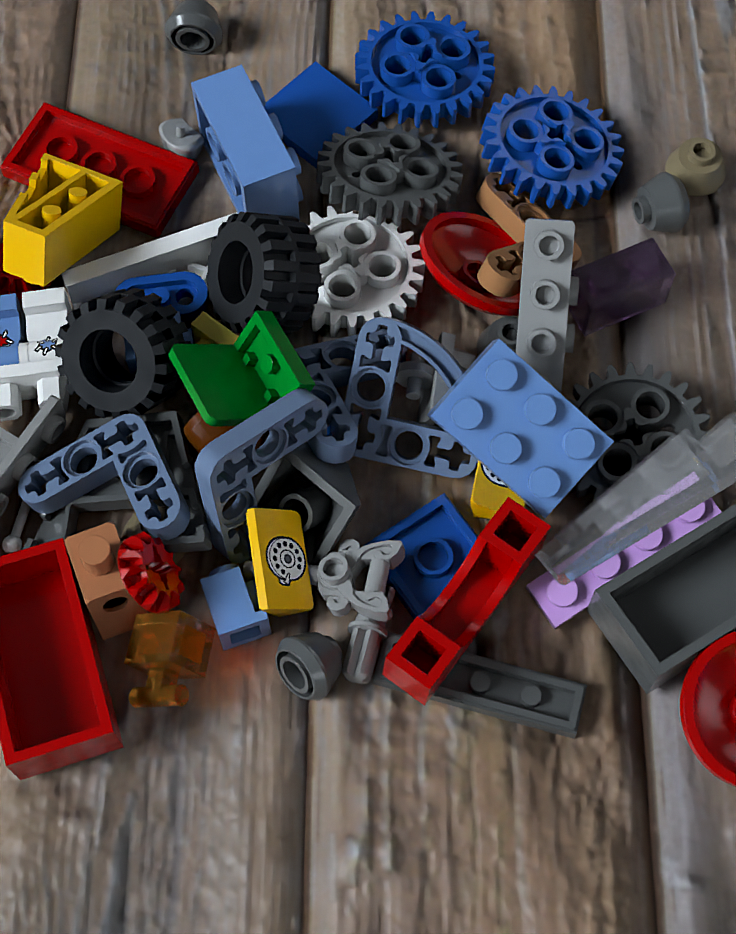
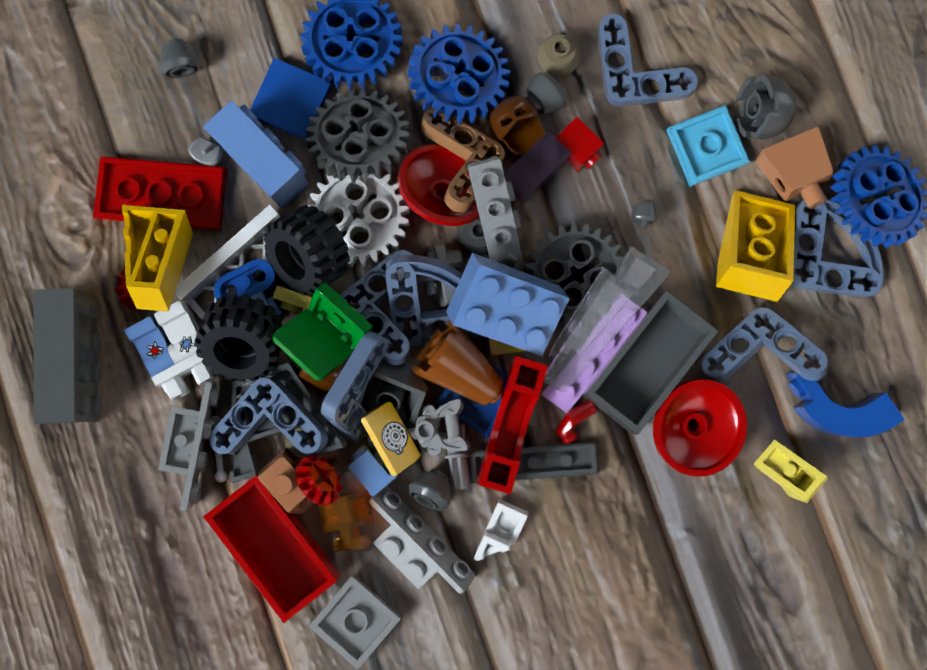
camera: 20 degrees left, 20 degrees up
(114, 824) = (355, 621): none -> light grey plate
(251, 743) = (415, 546): none -> light grey bracket
(395, 767) = (501, 529): none -> white slope
(419, 494) = (459, 366): none -> dark orange cone
(560, 638) = (573, 418): none -> red arm
(609, 220) = (517, 124): none -> reddish brown helmet
(696, 281) = (582, 145): none -> red brick

